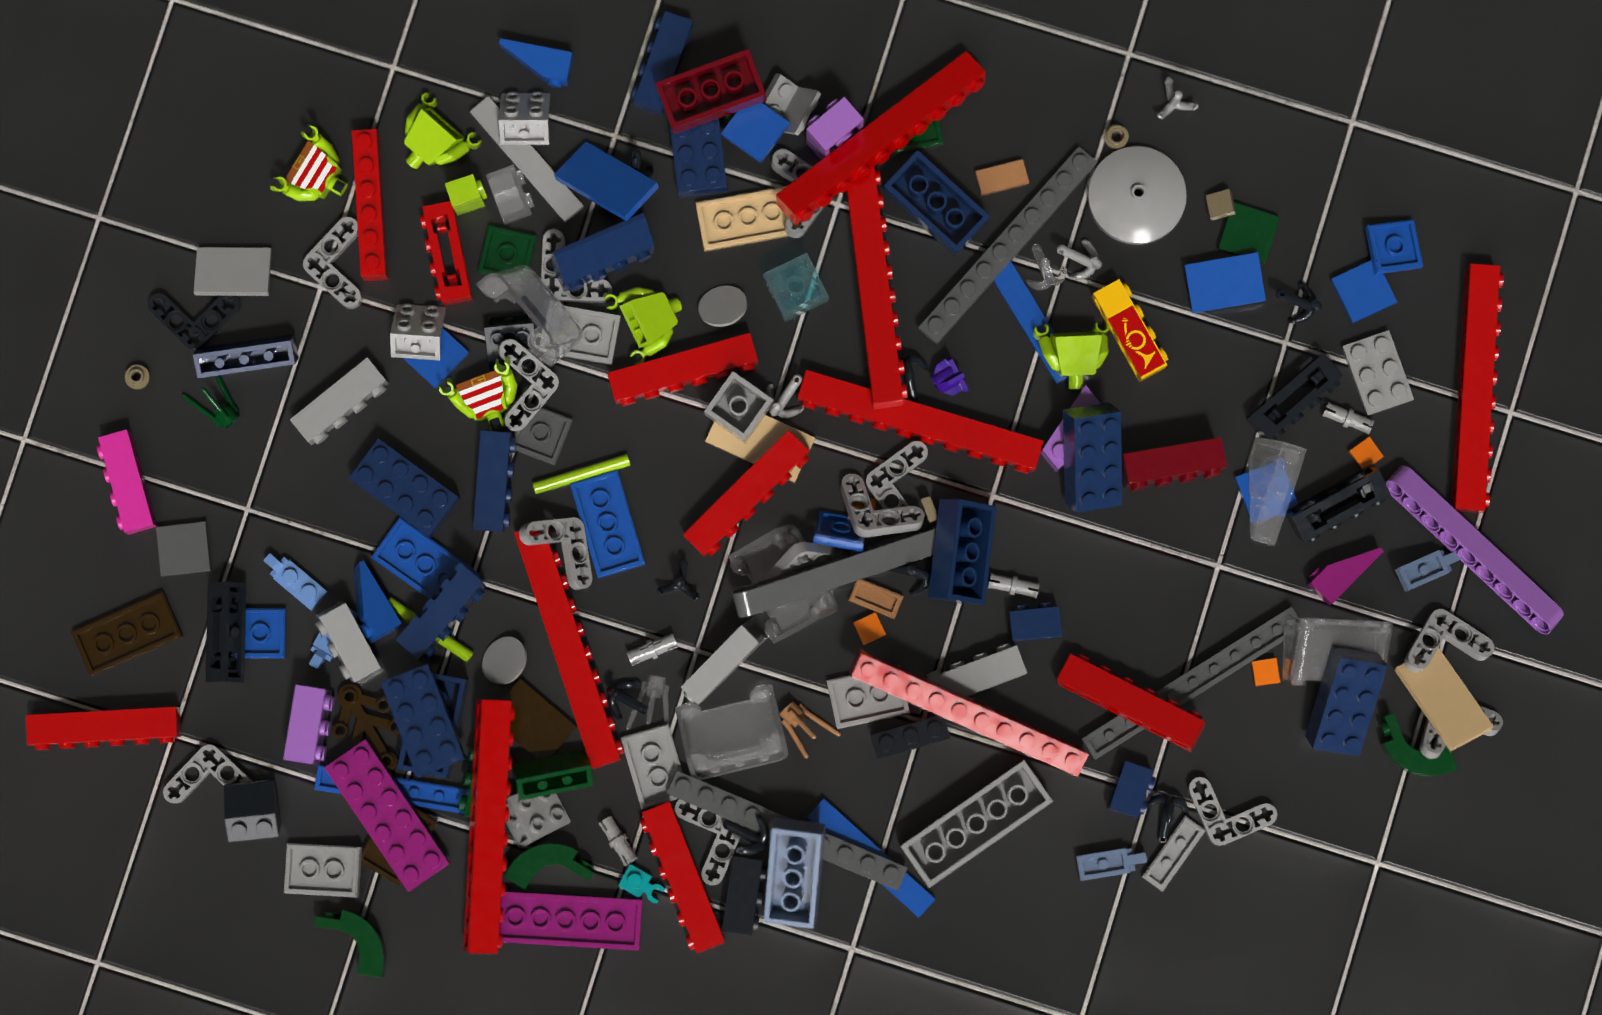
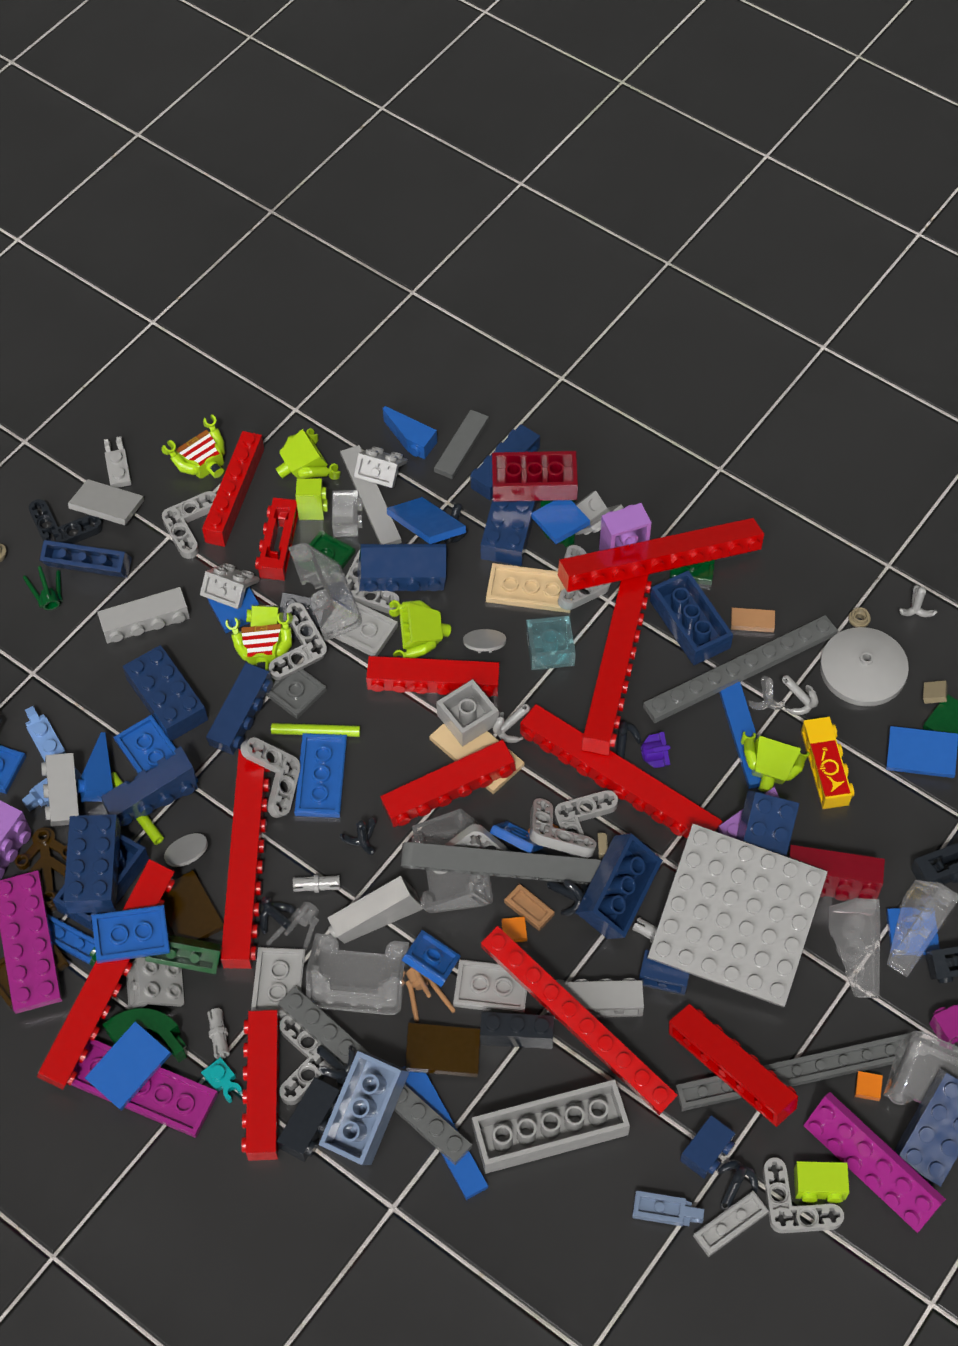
camera: 20 degrees right, 25 degrees down
(221, 215) = (117, 464): none -> light grey hinge
(472, 361) = (262, 615): none -> lime brick
(497, 784) = (130, 934): none -> blue tile
(547, 909) = (128, 1066): none -> blue tile
(603, 52) = (461, 444): none -> dark grey tile
(800, 693) = (431, 958): none -> blue tile
(844, 781) = (442, 1050): none -> dark brown tile
(1091, 548) = (737, 915): none -> light grey plate
(1214, 521) = (857, 938): none -> clear wedge
(1246, 785) = (821, 1181): none -> lime brick
(1291, 753) = (874, 1162): none -> magenta plate

